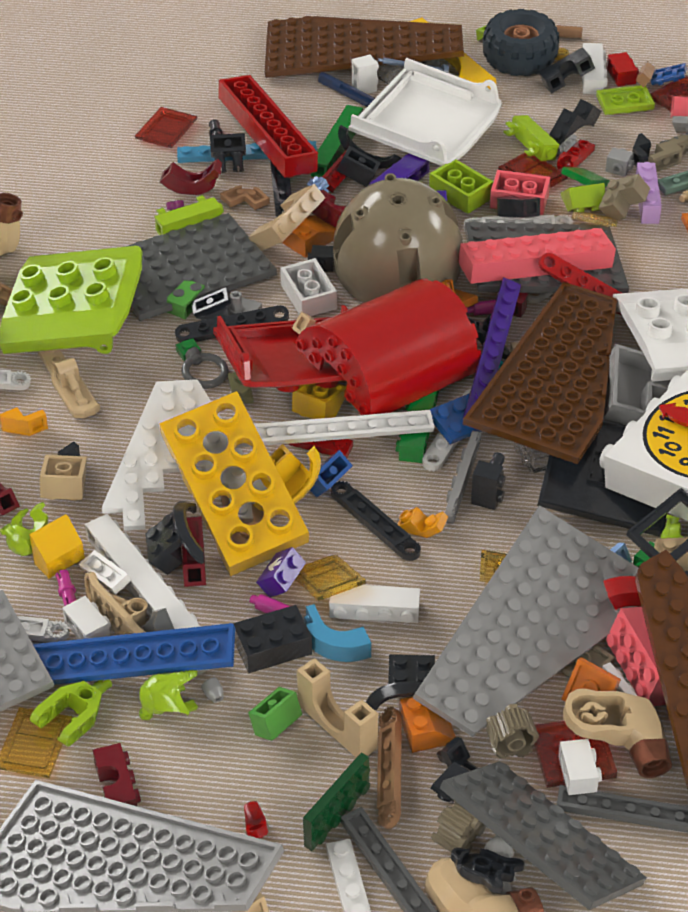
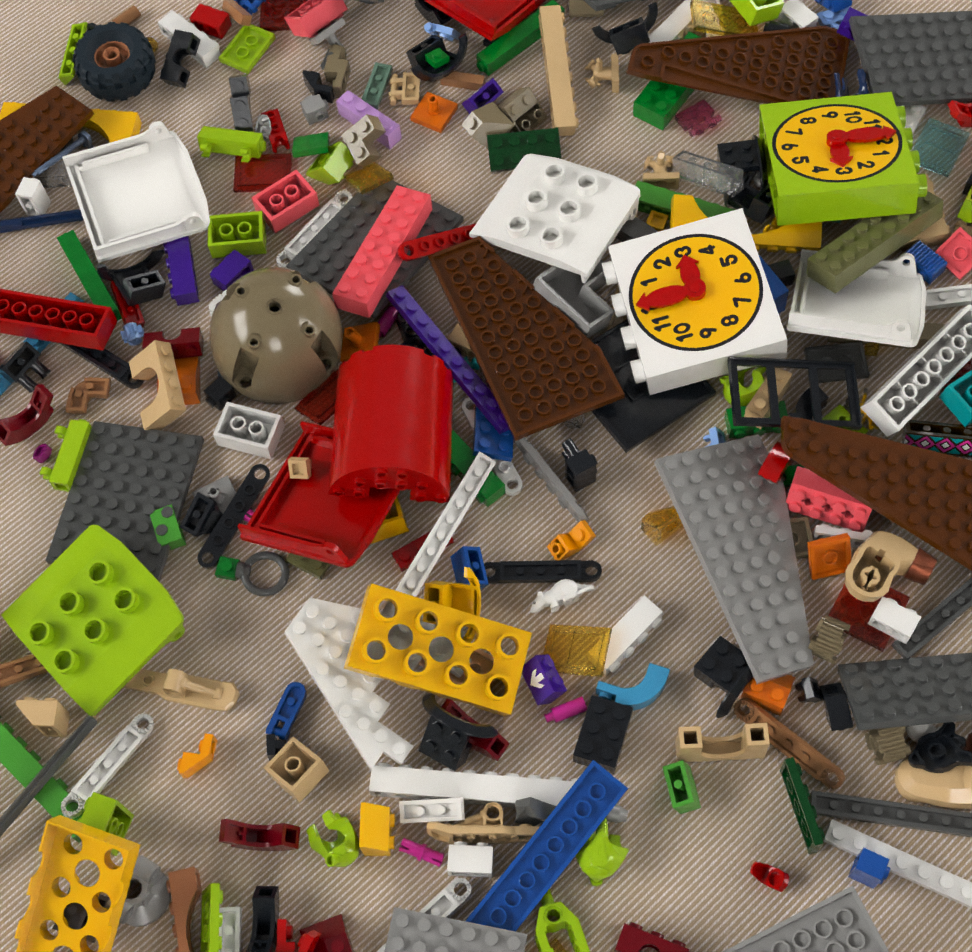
camera: 45 degrees left, 20 degrees up
(105, 447) = (287, 710): none -> blue plate
(325, 882) = (869, 868): none -> blue brick
(370, 544) = (563, 592): none -> white animal
(518, 207) = (304, 218): black slope -> none

